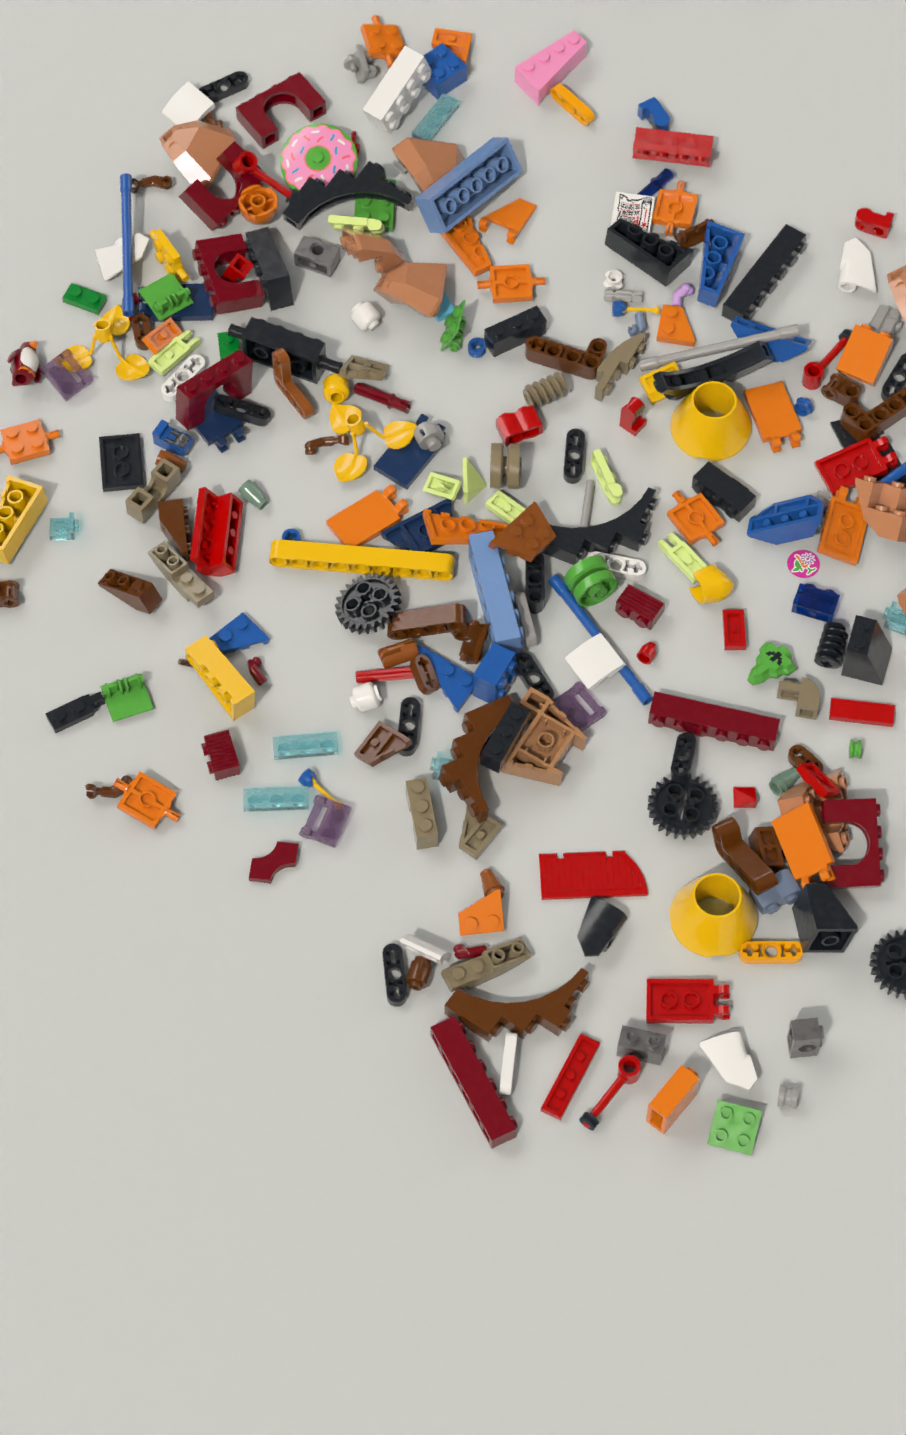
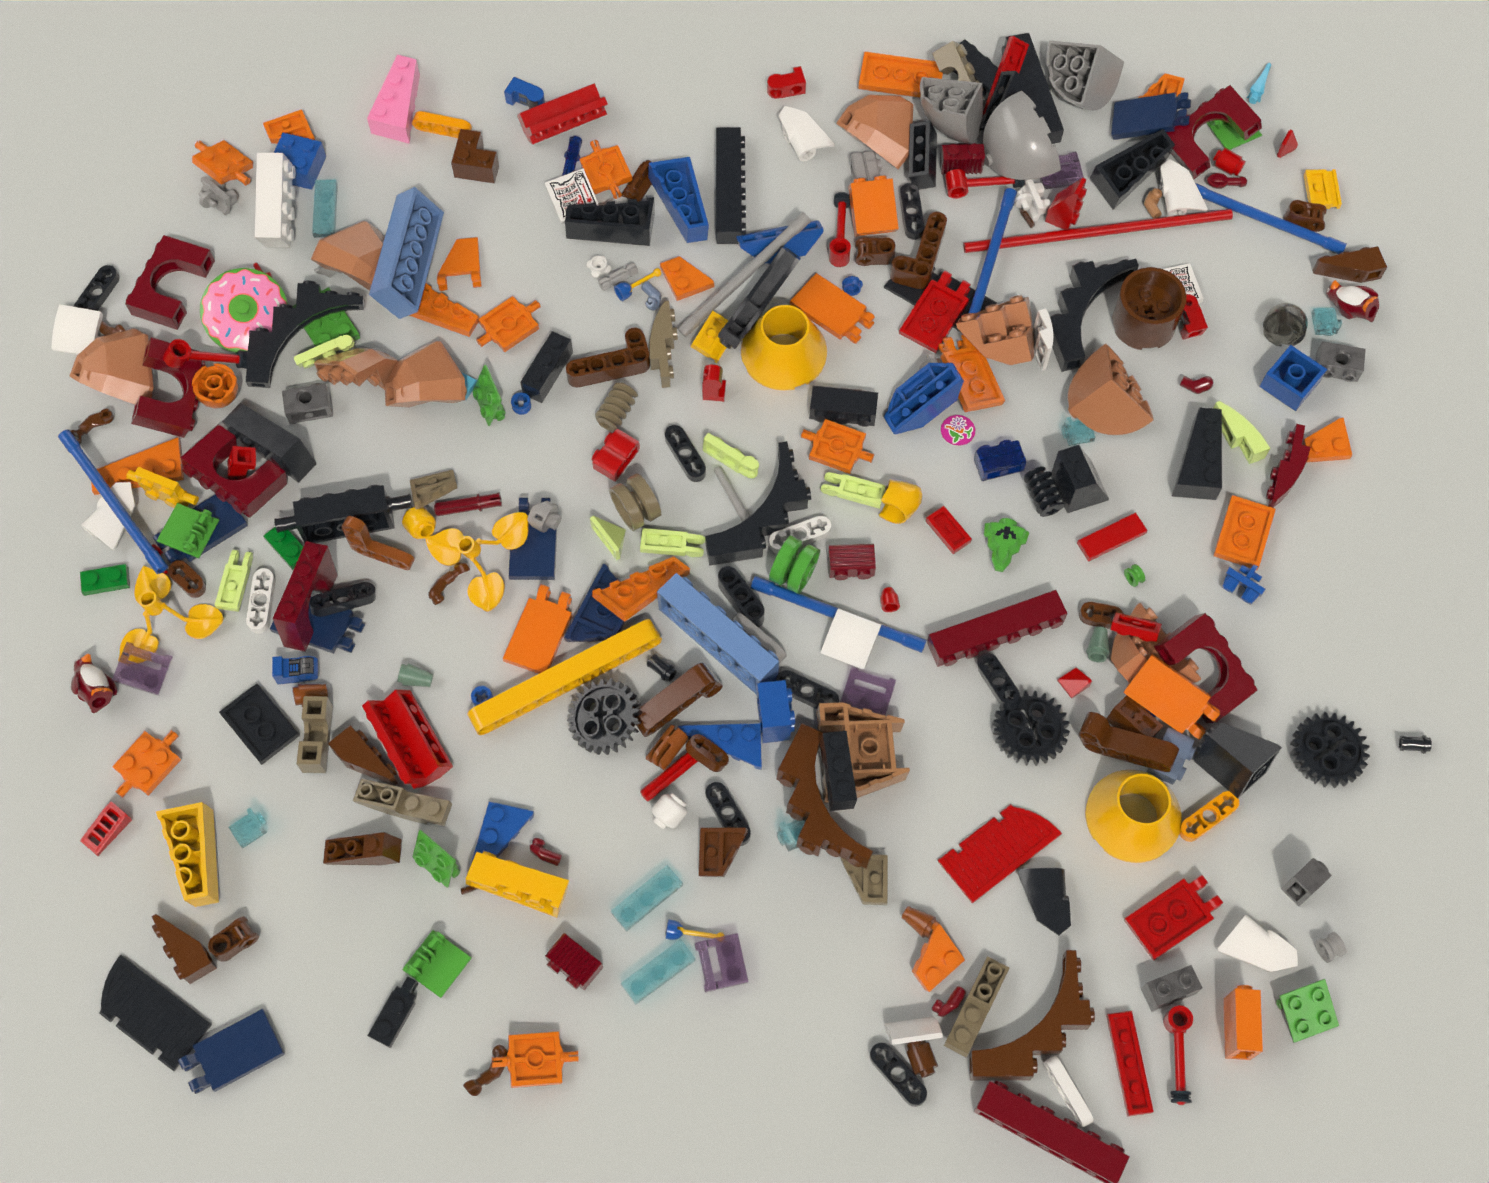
camera: 35 degrees left, 5 degrees up
(162, 335) = (211, 572): orange plate -> none
(175, 626) = (435, 859): none -> bright green hinge
(180, 235) = (160, 459): none -> orange wing
(265, 868) = (698, 1048): dark red tile -> none
(365, 316) = (396, 434): white head -> none
(422, 813) = (797, 883): dark tan arch -> none
(437, 596) = (665, 670): none -> black pin
(442, 486) = (589, 557): yellowish green slope -> none
(472, 651) = (730, 682): reddish brown hinge -> none
(525, 535) = (707, 558): dark orange wing -> none
(575, 144) = (471, 160): none -> reddish brown brick
(679, 293) = (667, 243): lavender arm -> none
(805, 694) = (1058, 552): dark tan brick -> none

